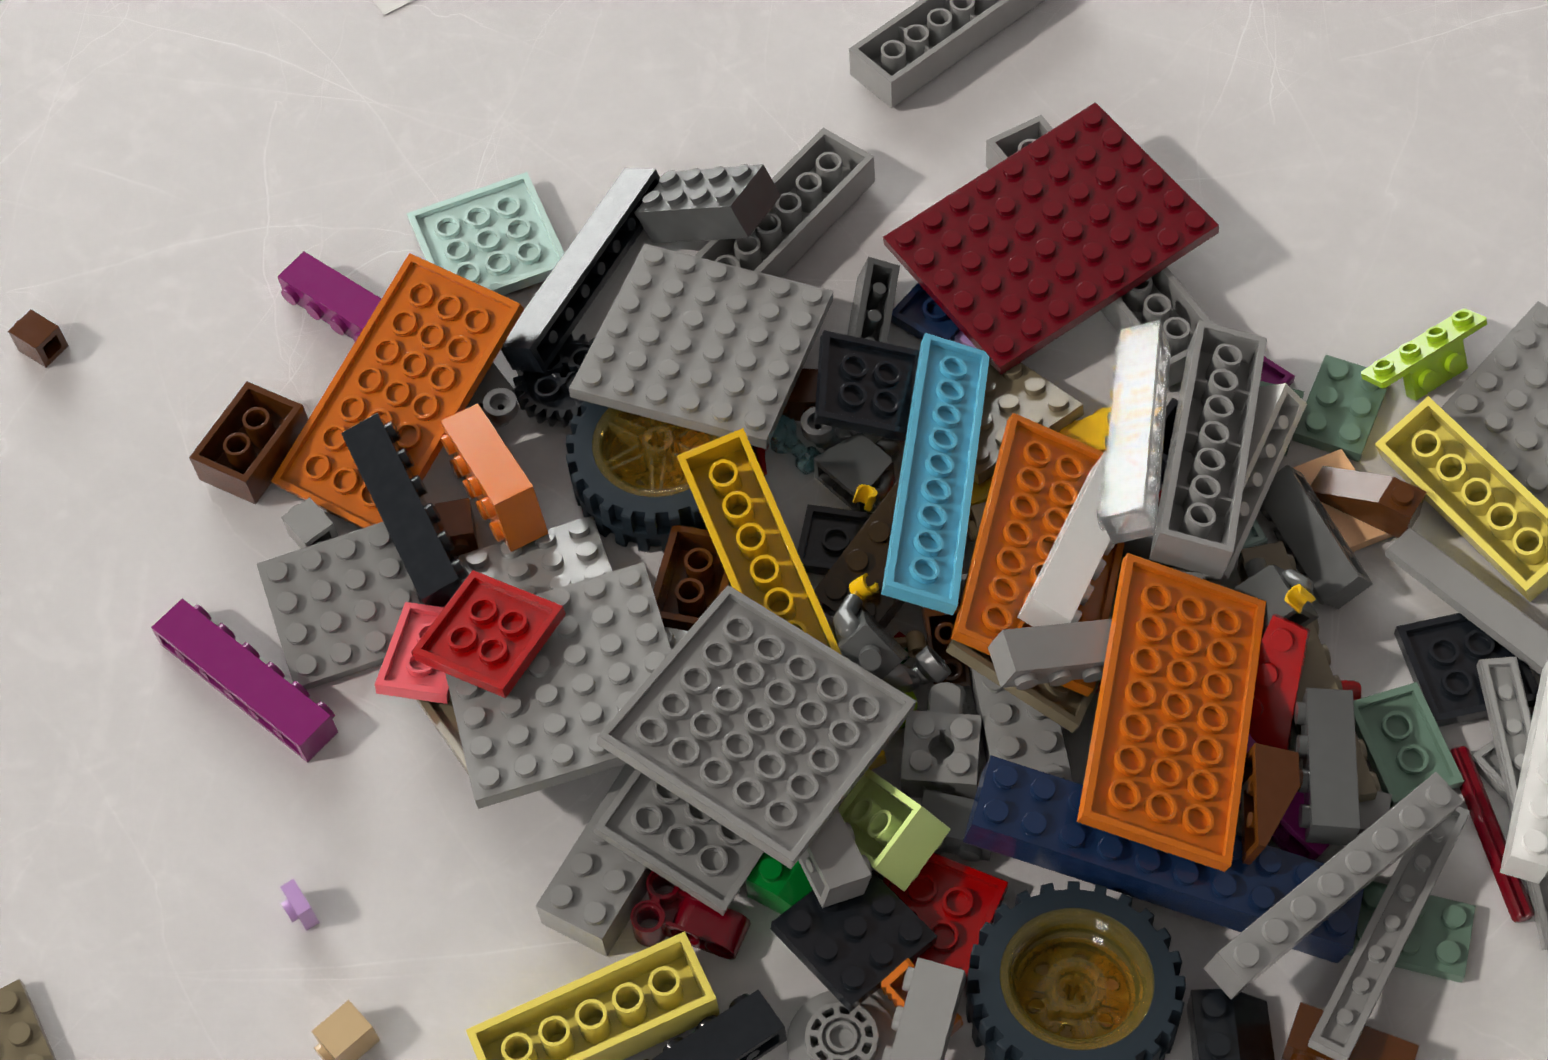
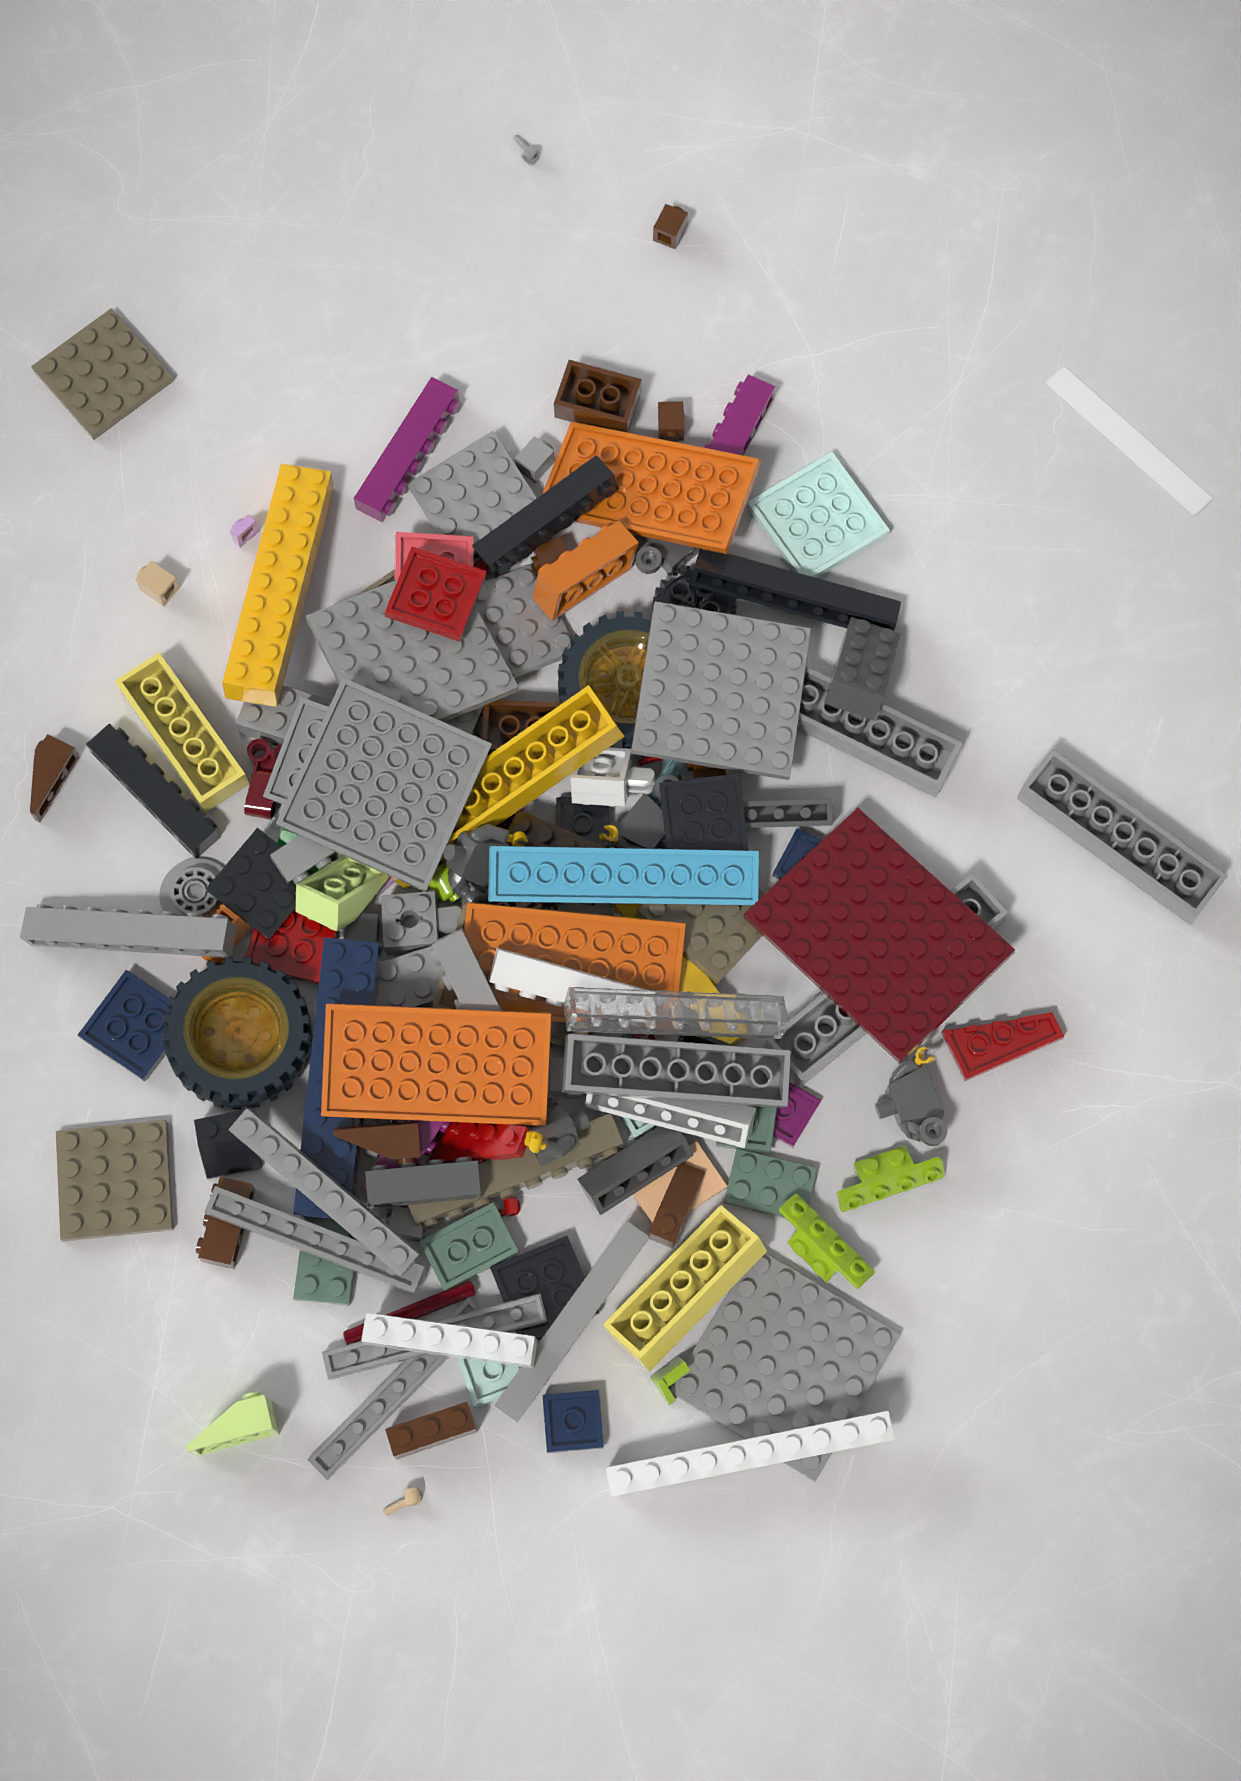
camera: 75 degrees right, 15 degrees up
(308, 372) = (671, 421): none -> reddish brown brick
(408, 853) = (278, 586): none -> yellow brick
(797, 485) = (610, 779): none -> white brick
(1190, 156) = (994, 1044): none -> red wing
(1252, 247) = (915, 1102): none -> dark grey torso
(1338, 287) = (886, 1176): none -> lime bracket

